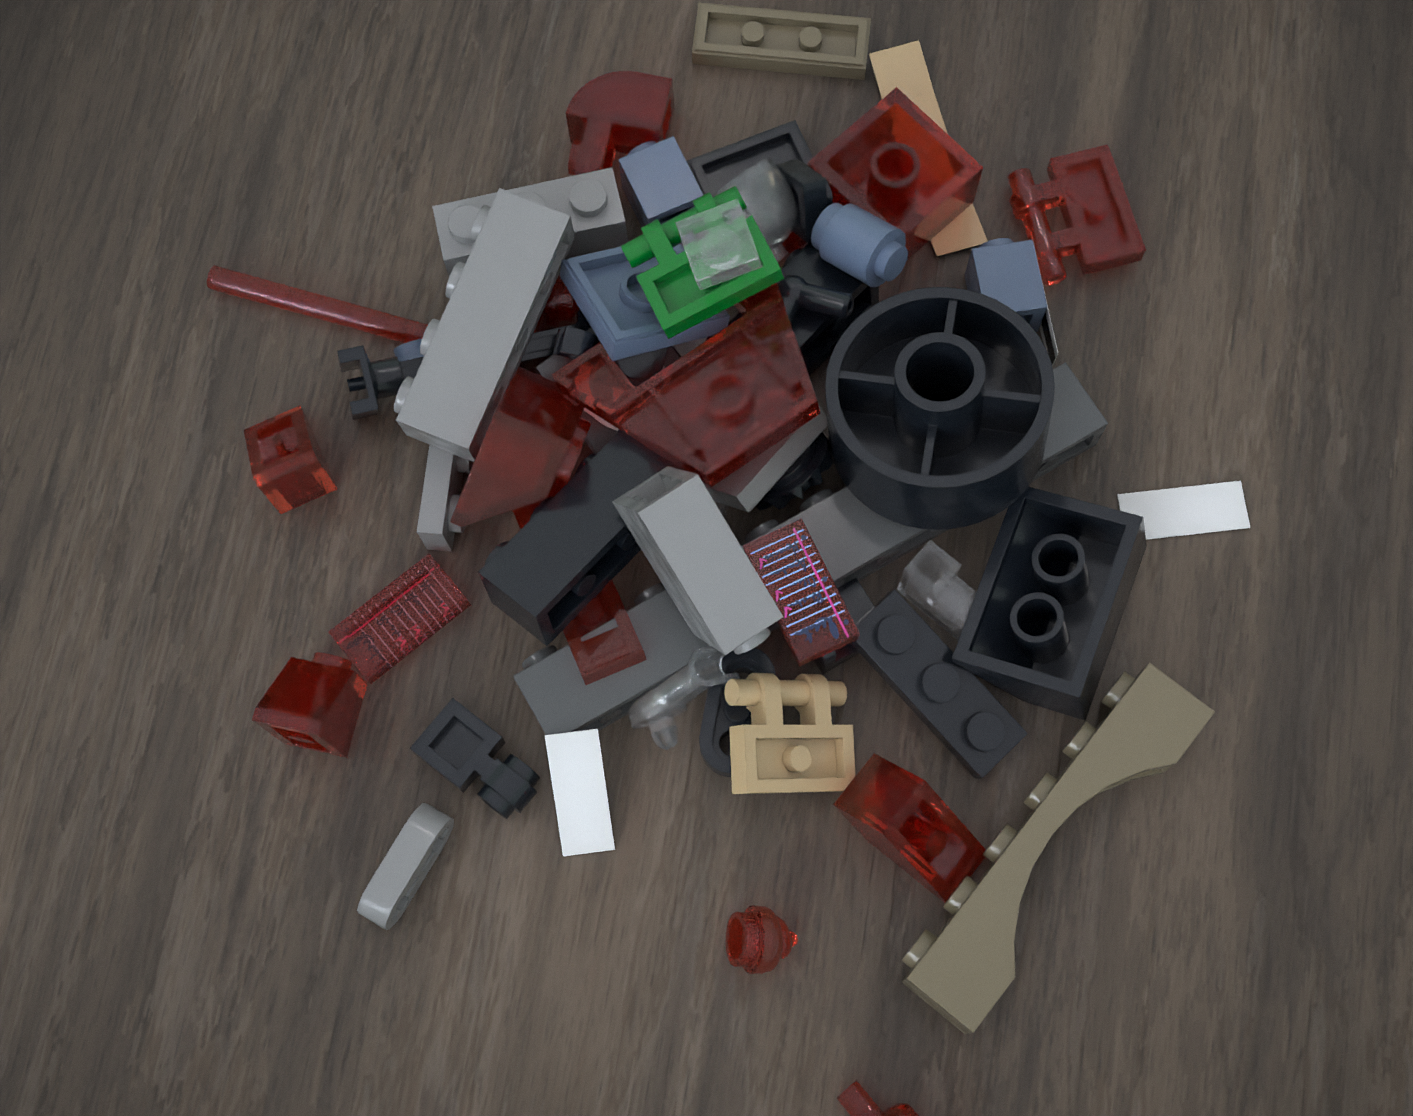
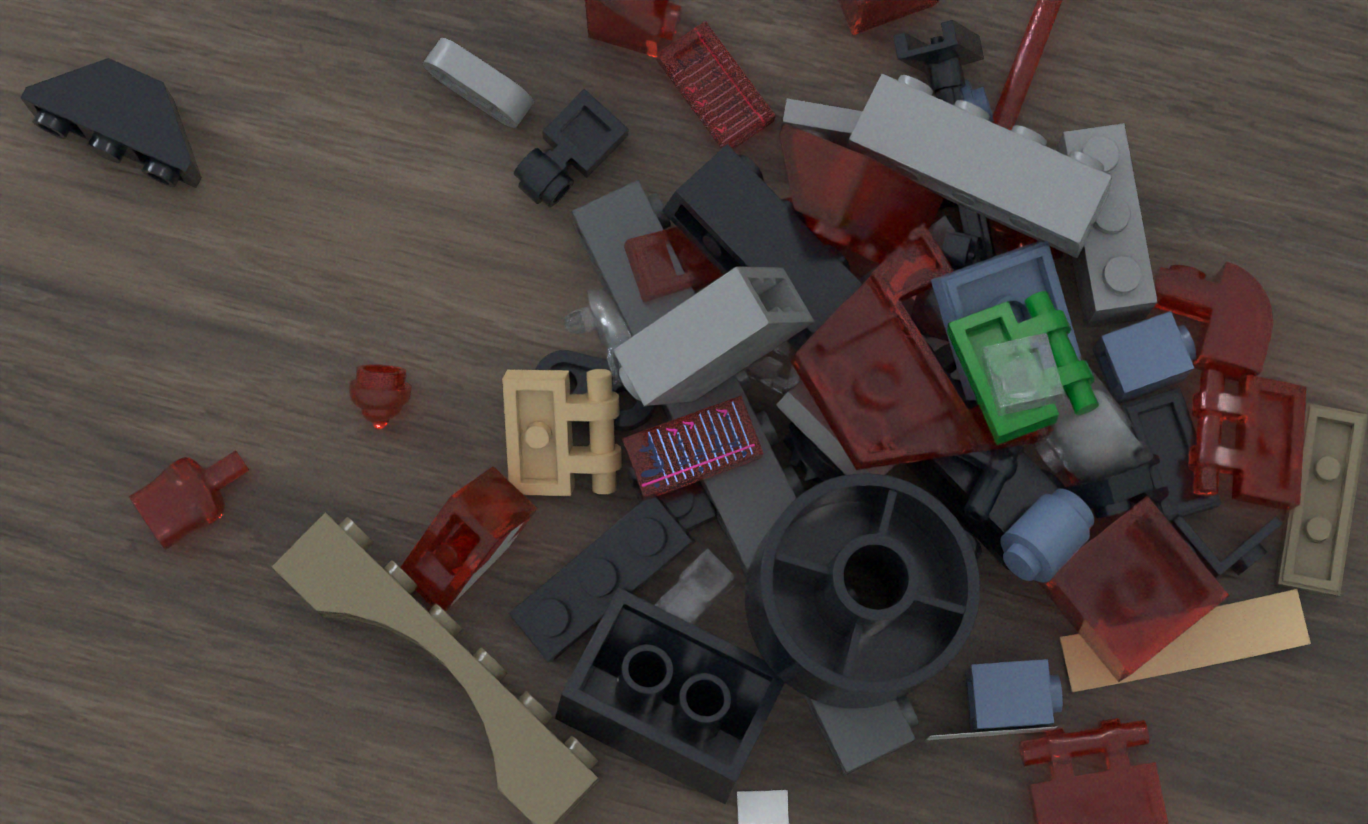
camera: 90 degrees right, 5 degrees up
(580, 792) = (528, 238): white sticker -> none
(733, 80) = (1267, 439): none -> clear red plate
(838, 94) = (1239, 559): none -> black bracket

